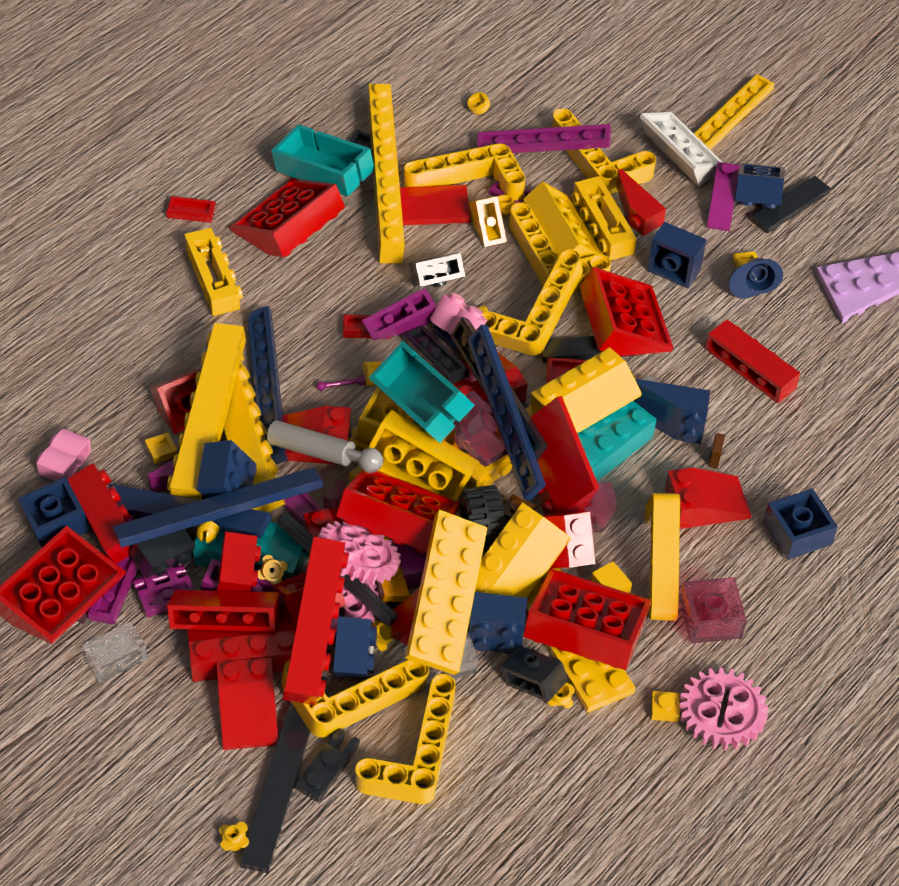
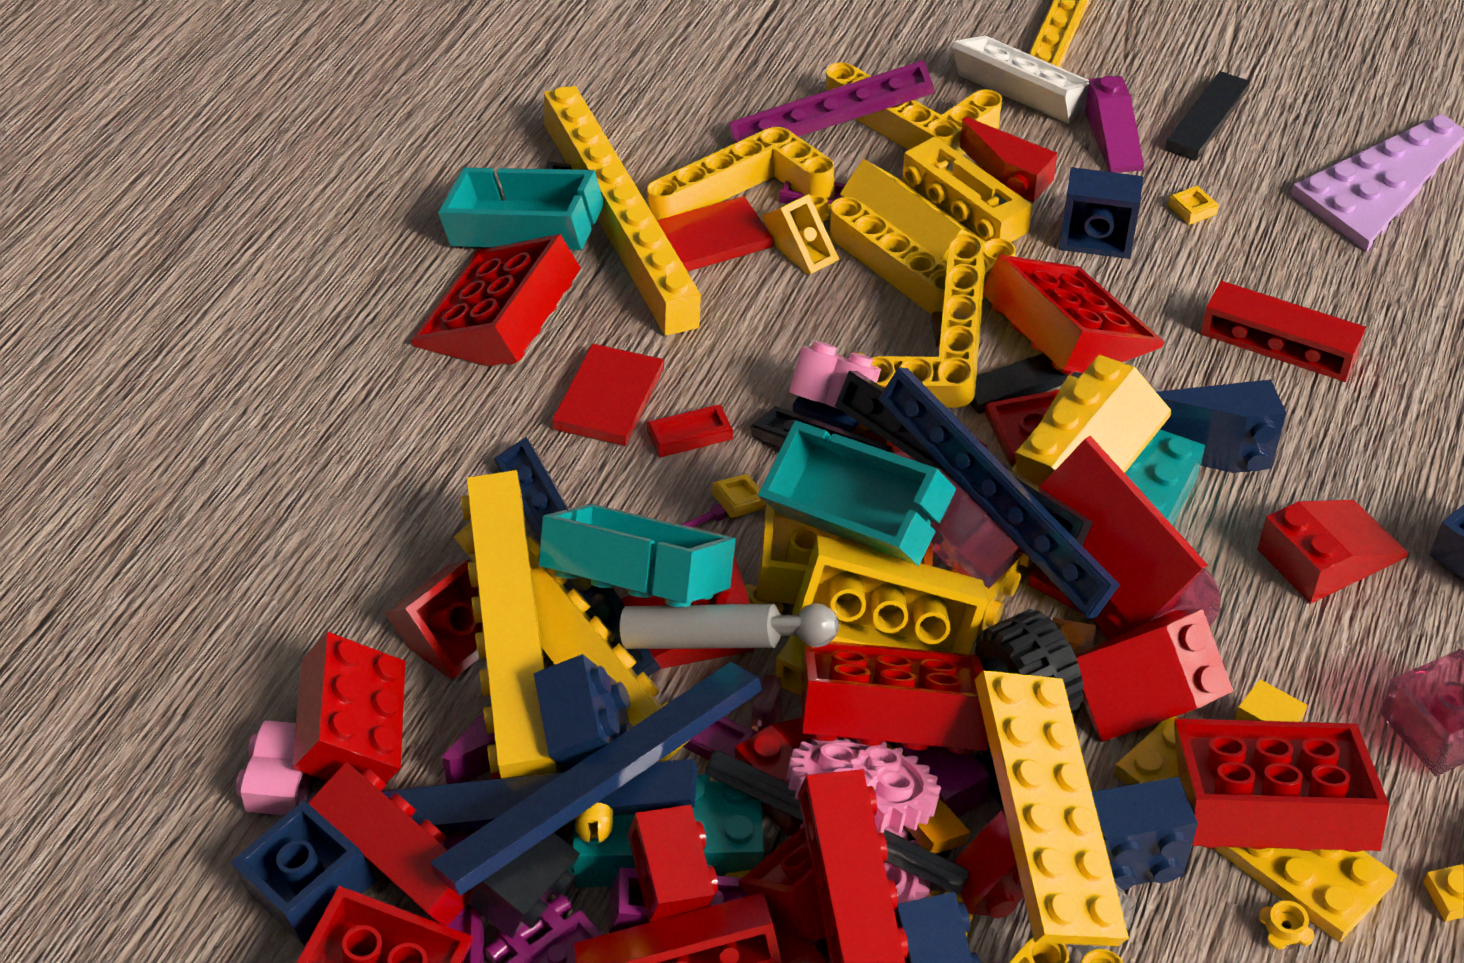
camera: 15 degrees left, 5 degrees down
(108, 435) = (349, 709): none -> red brick
(161, 448) = (442, 707): yellow plate -> none
(191, 209) = (340, 330): red tile -> none
(226, 294) = (448, 435): yellow brick -> none
(279, 567) = (739, 847): yellow plate -> none
(291, 392) = (637, 554): none -> teal piece
(329, 291) = (608, 394): none -> red tile
(401, 316) = (744, 398): magenta slope -> none
(437, 270) = (763, 320): brick -> none
(478, 103) = (708, 87): yellow tile -> none
(520, 555) = (1128, 706): yellow slope -> none
(534, 673) = (1236, 902): black brick -> none
(663, 515) = (1333, 634): yellow beam -> none
(716, 450) = (1307, 470): reddish brown tile -> none
(755, 278) = (1225, 216): dark blue piece -> none
(760, 185) = (1166, 97): dark blue slope -> none

